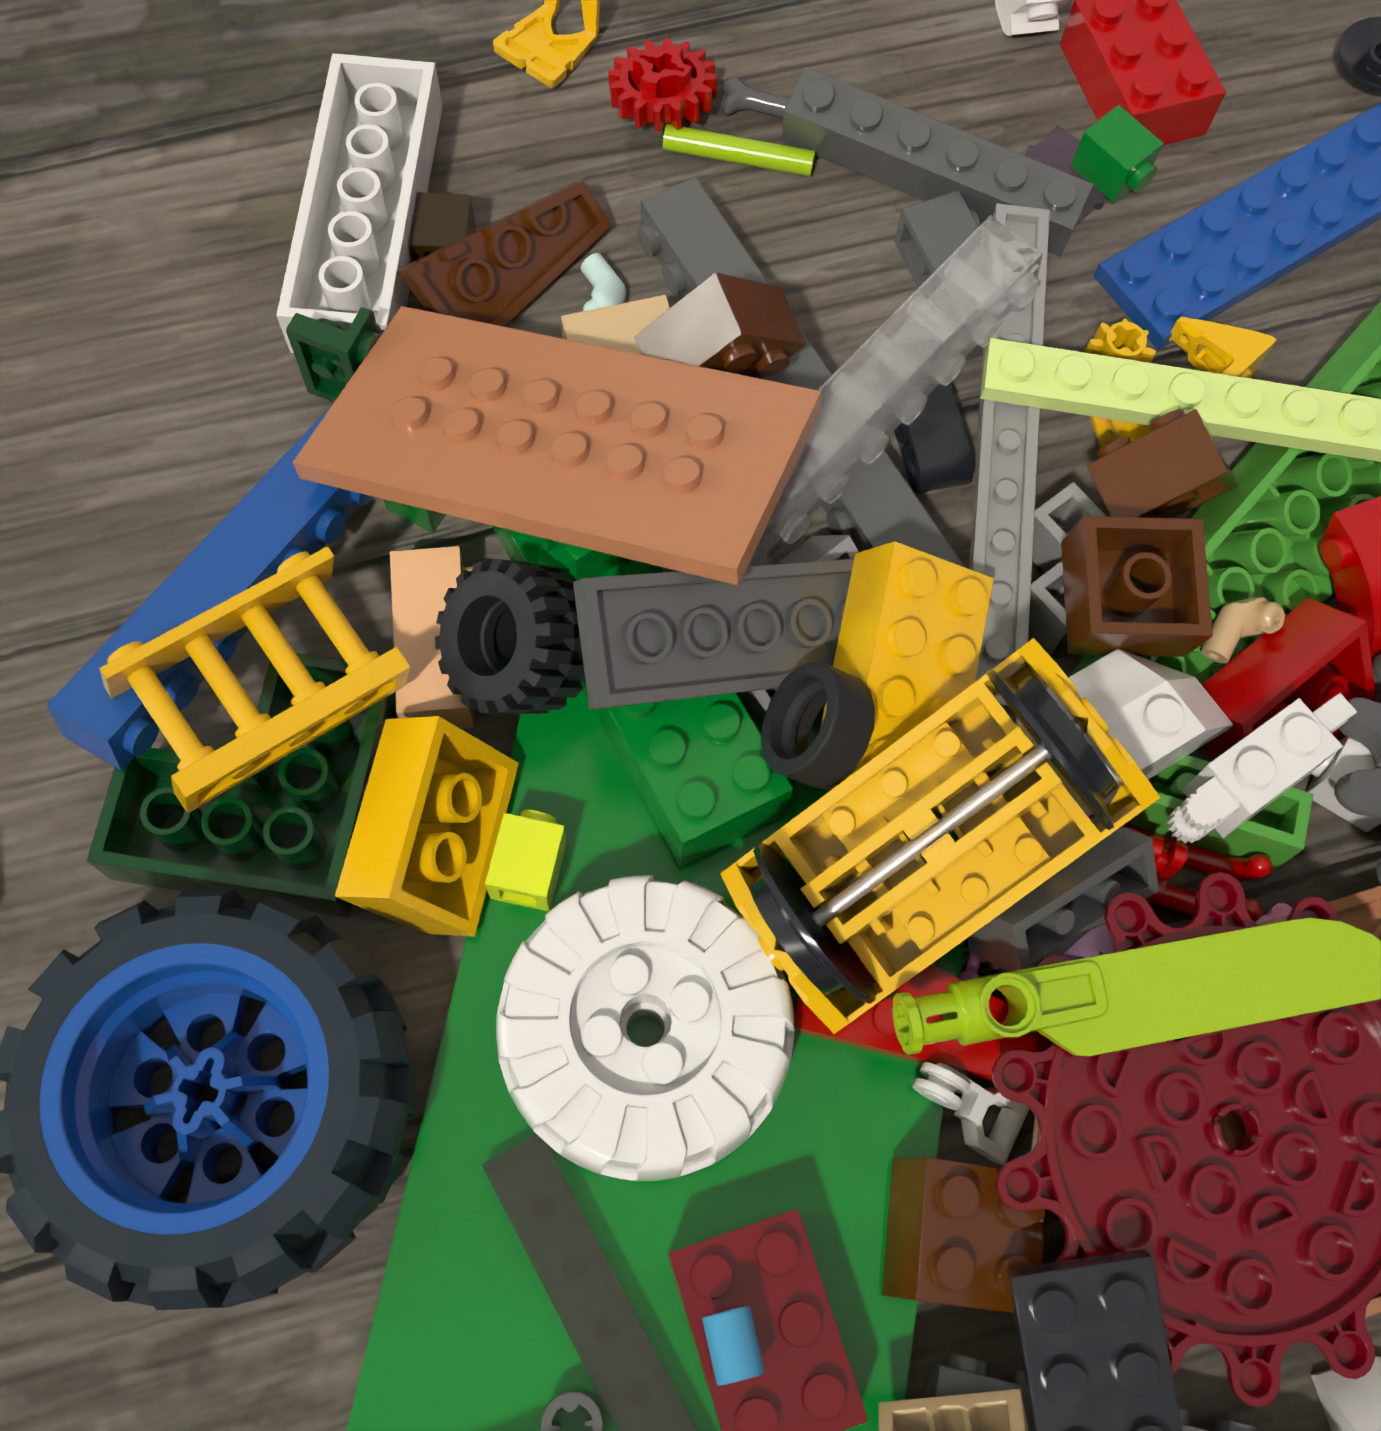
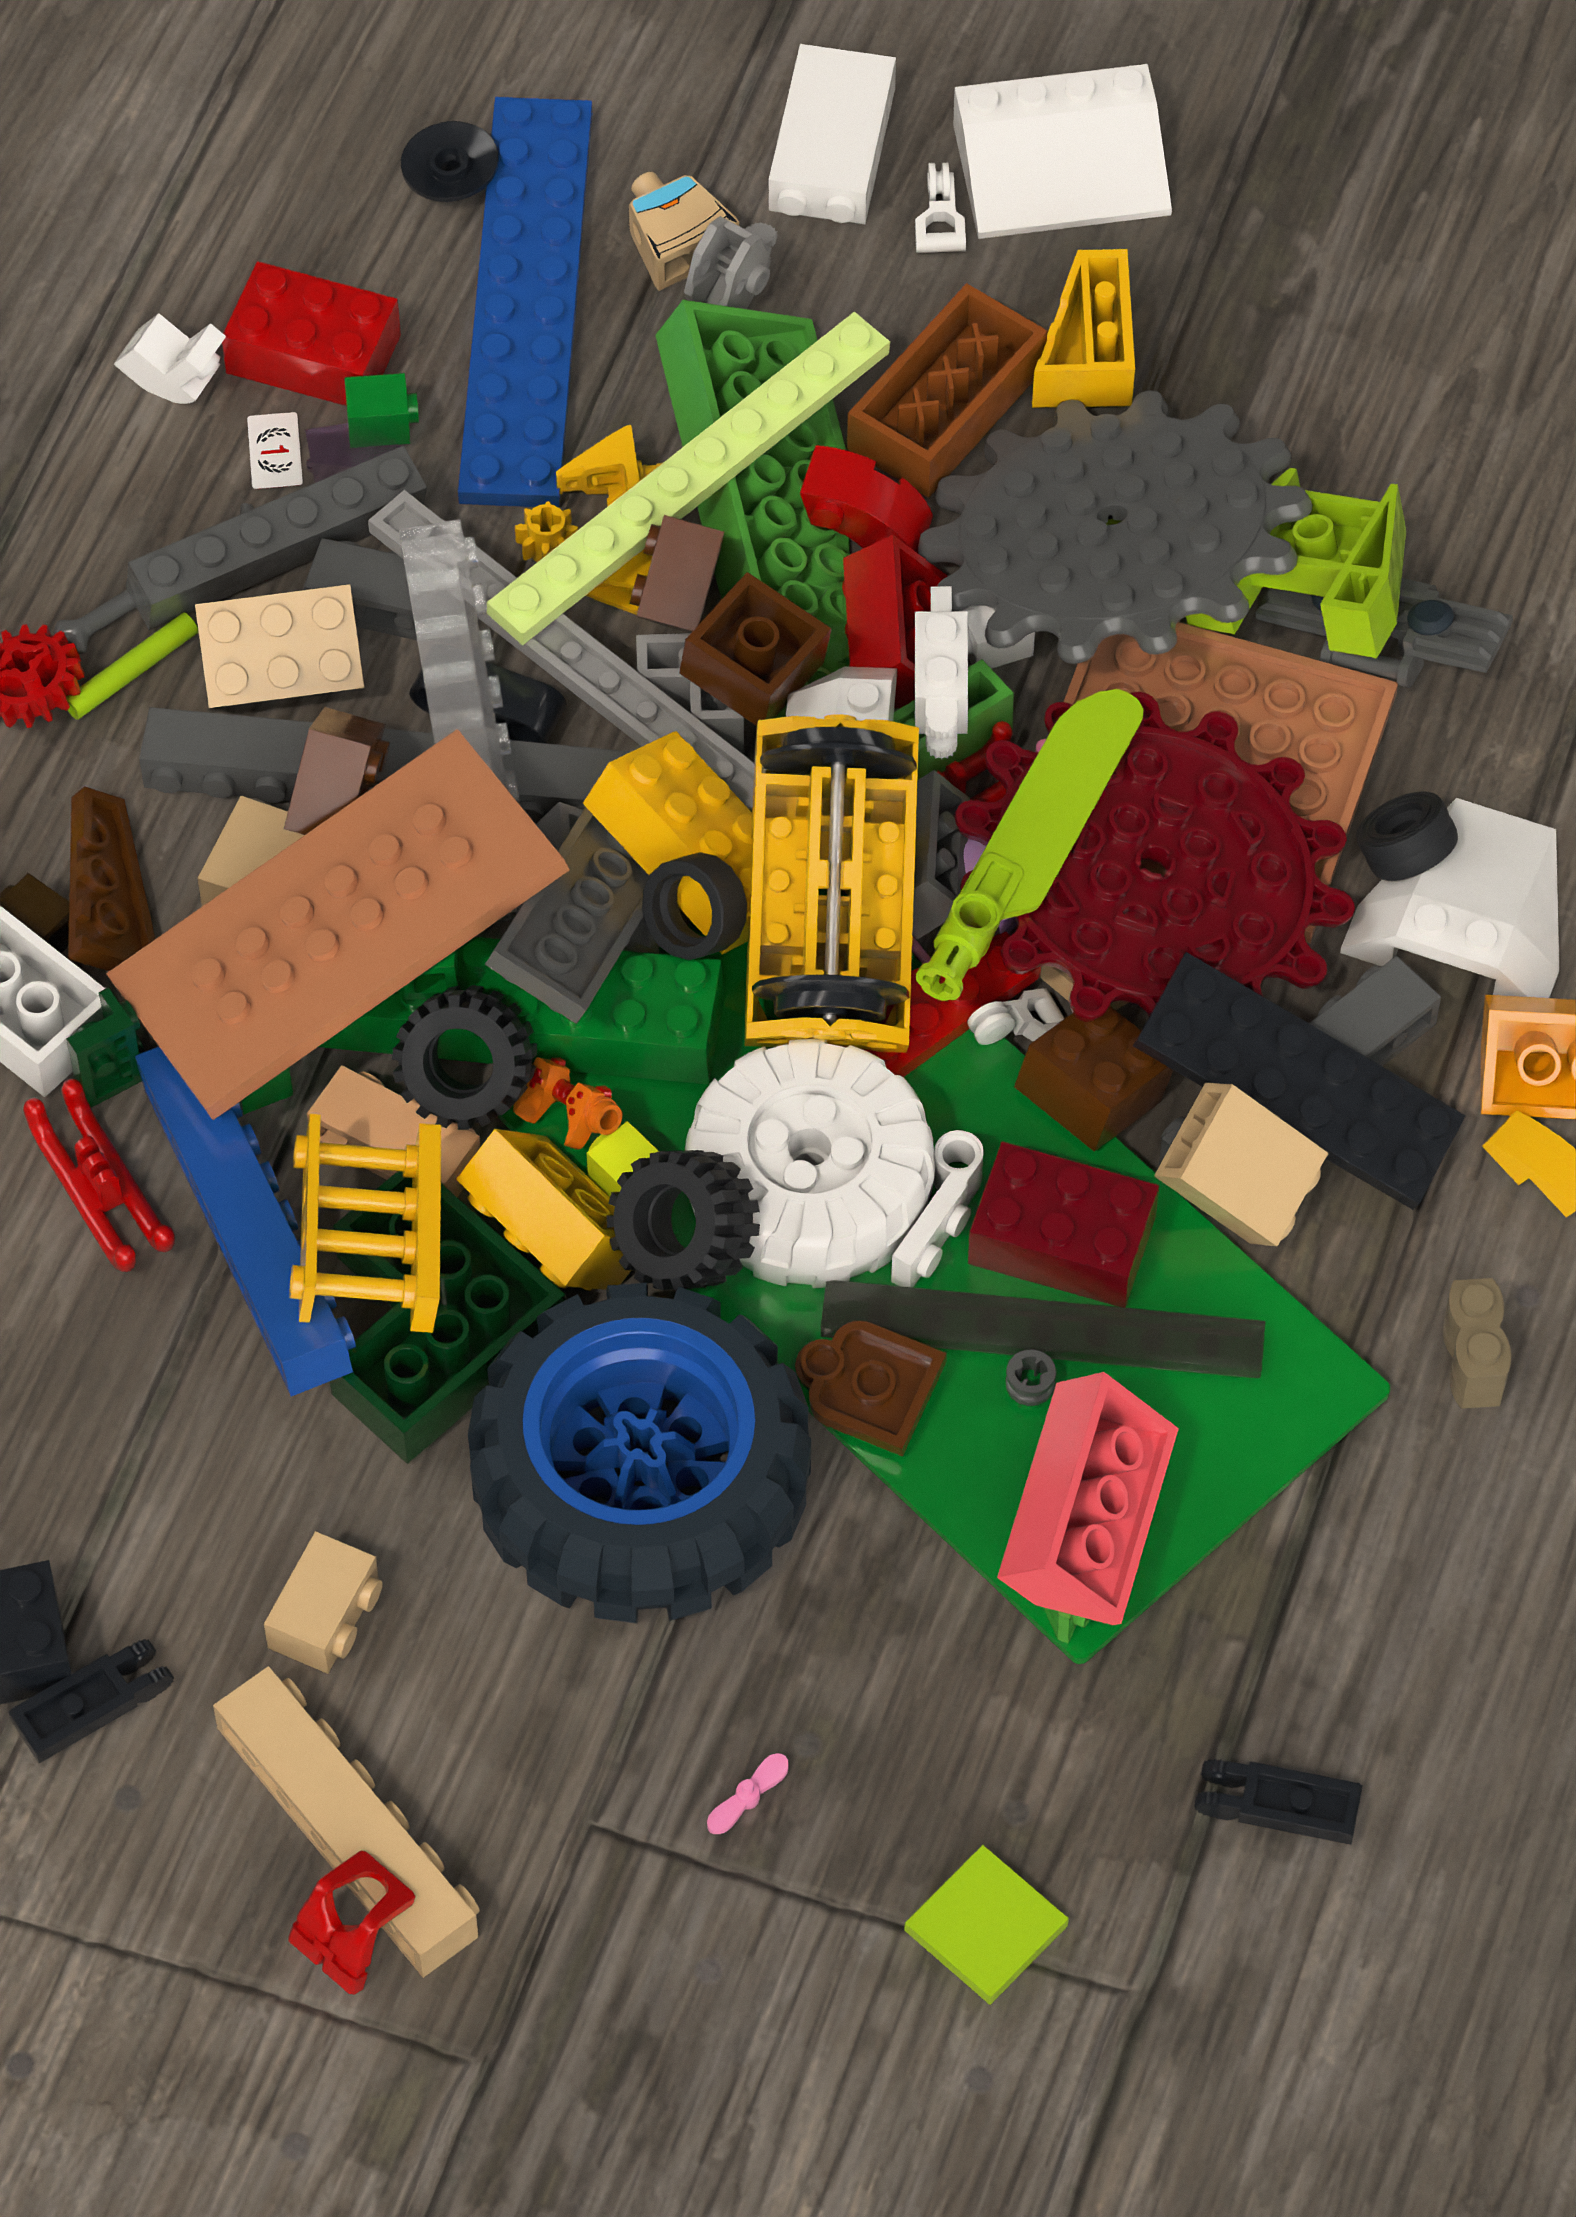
camera: 50 degrees left, 10 degrees down
(231, 444) = (99, 1180): none -> red piece
(447, 1263) = (870, 1382): none -> reddish brown plate
(458, 962) = (645, 1225): none -> black tyre
(550, 780) = (587, 1106): none -> orange piece
(607, 285) = (182, 838): light aqua arm -> none
(690, 1200) = (945, 1213): none -> white plate
(733, 1345) = (1054, 1216): dark azure hinge -> none
(829, 227) = (279, 646): none -> tan brick
(1022, 119) = (274, 450): none -> white sticker
(1240, 620) = (827, 606): tan arm -> none

